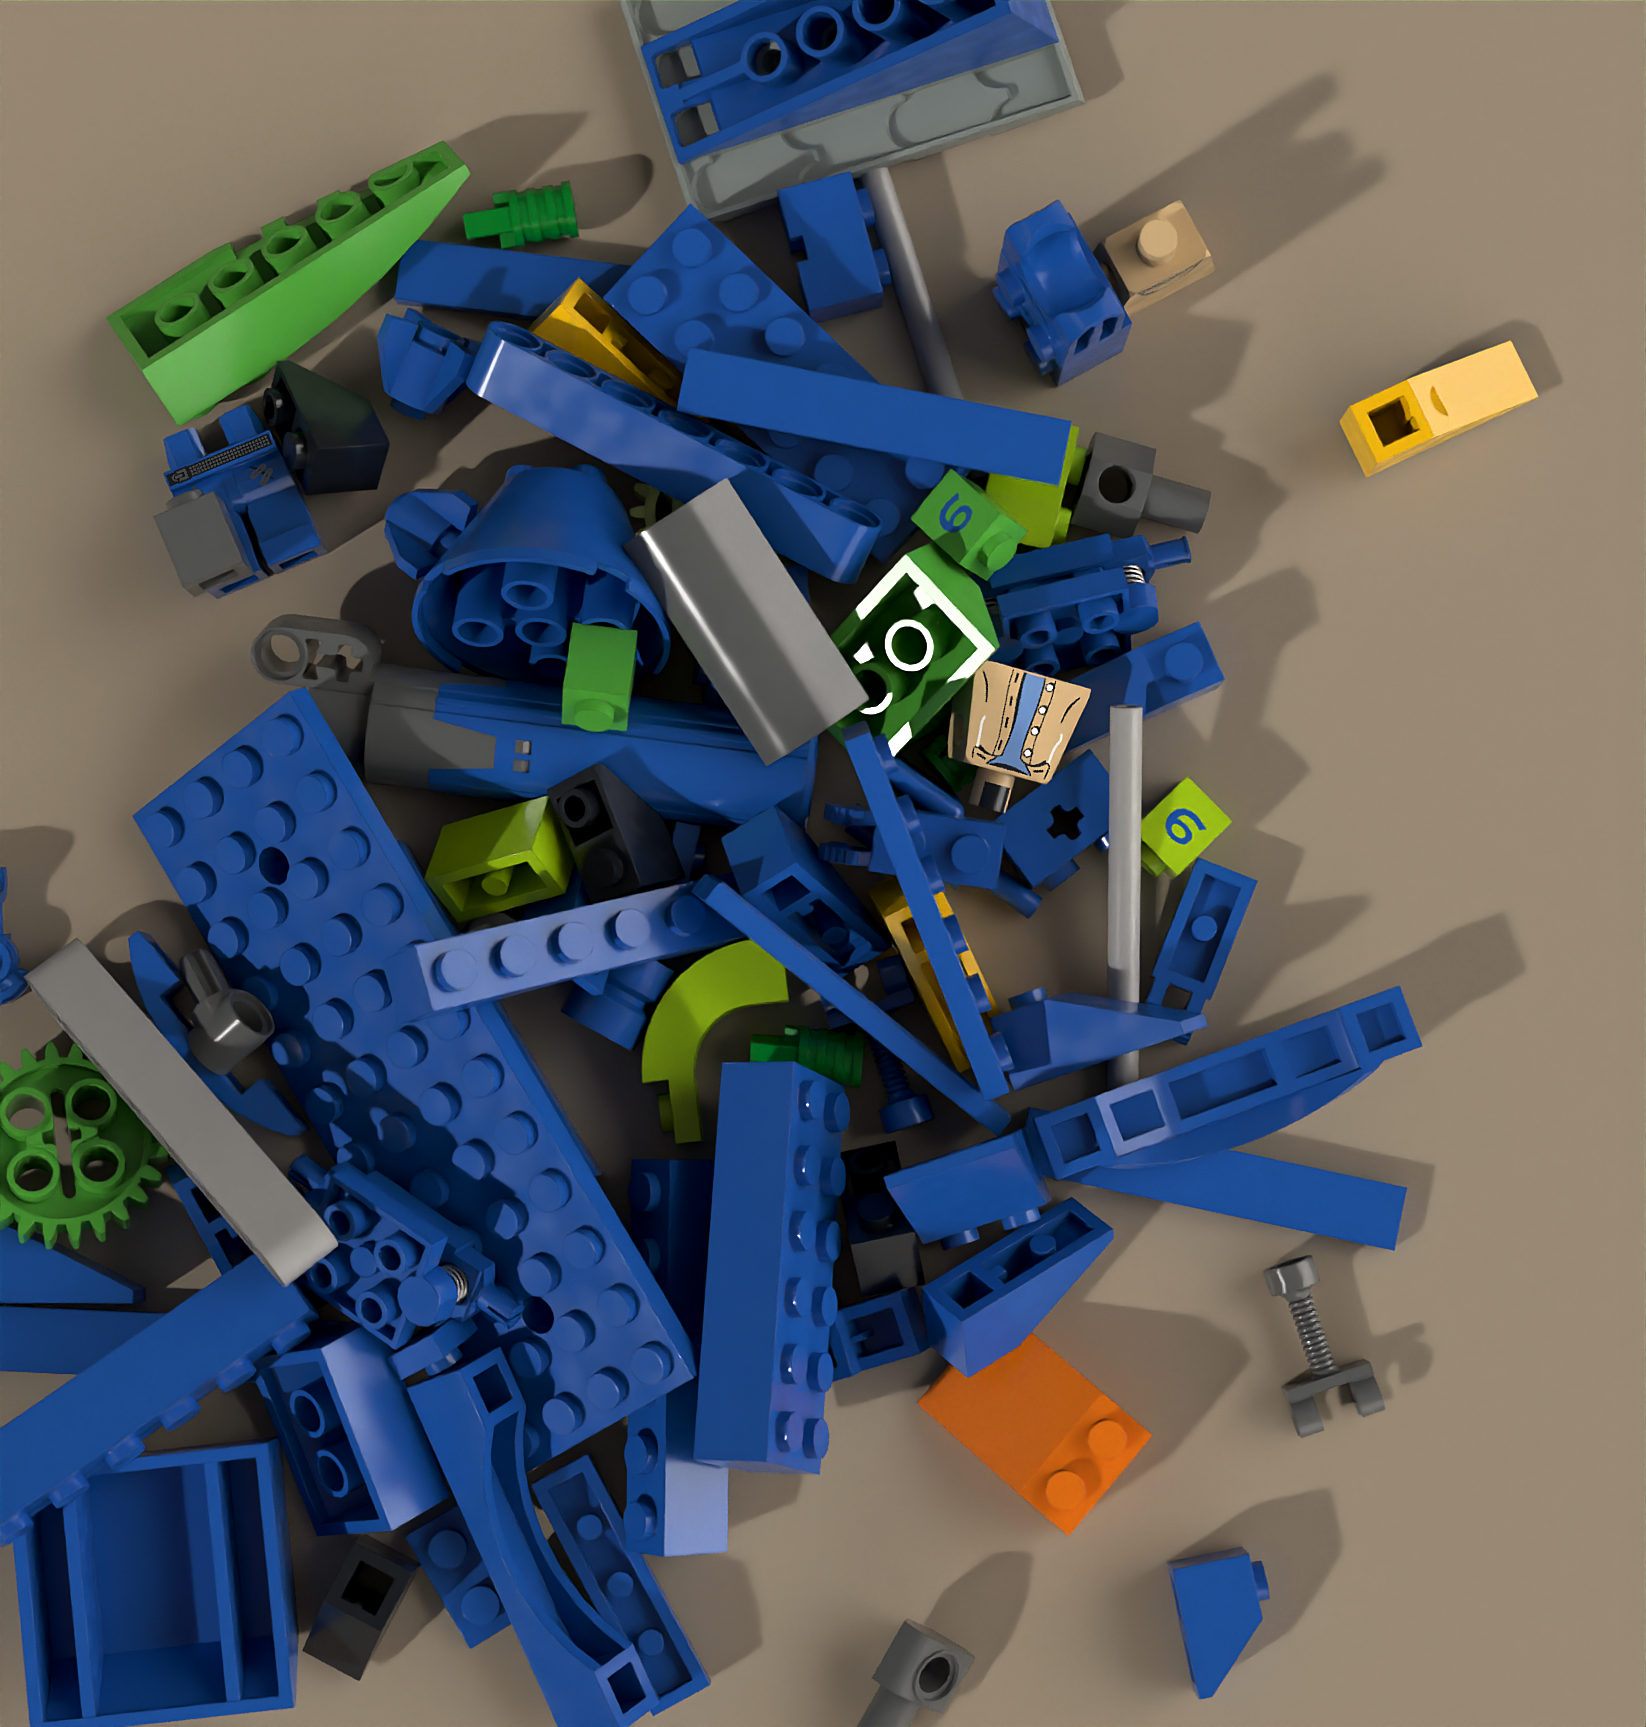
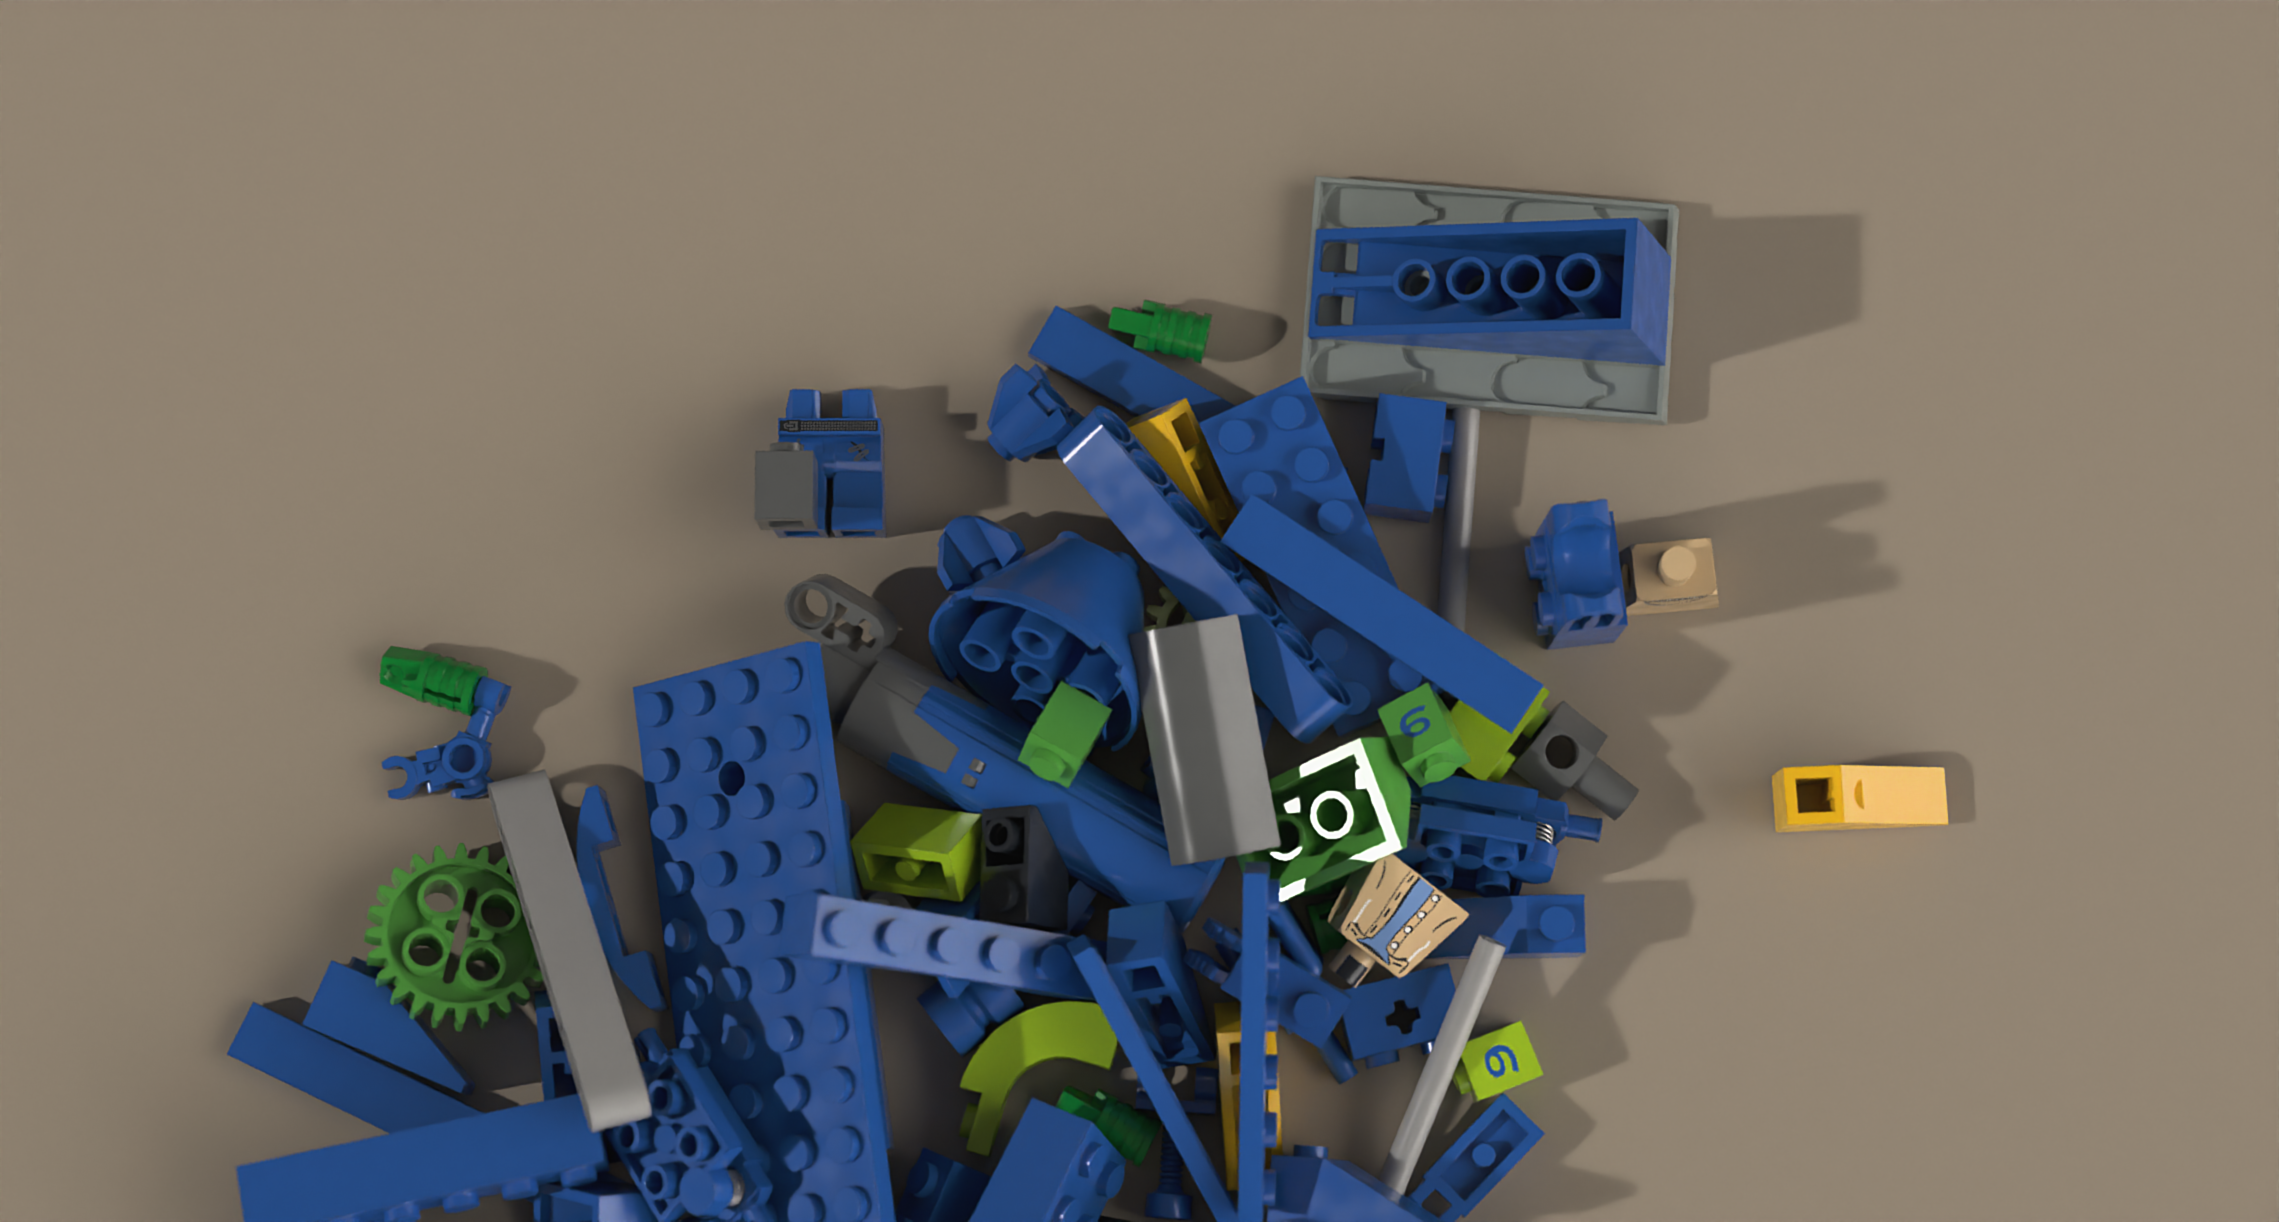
camera: 20 degrees right, 5 degrees down
(225, 1019) = (637, 889): dark grey axle -> none
(248, 308) = (909, 312): bright green wedge -> none
(325, 431) = (925, 438): black slope -> none

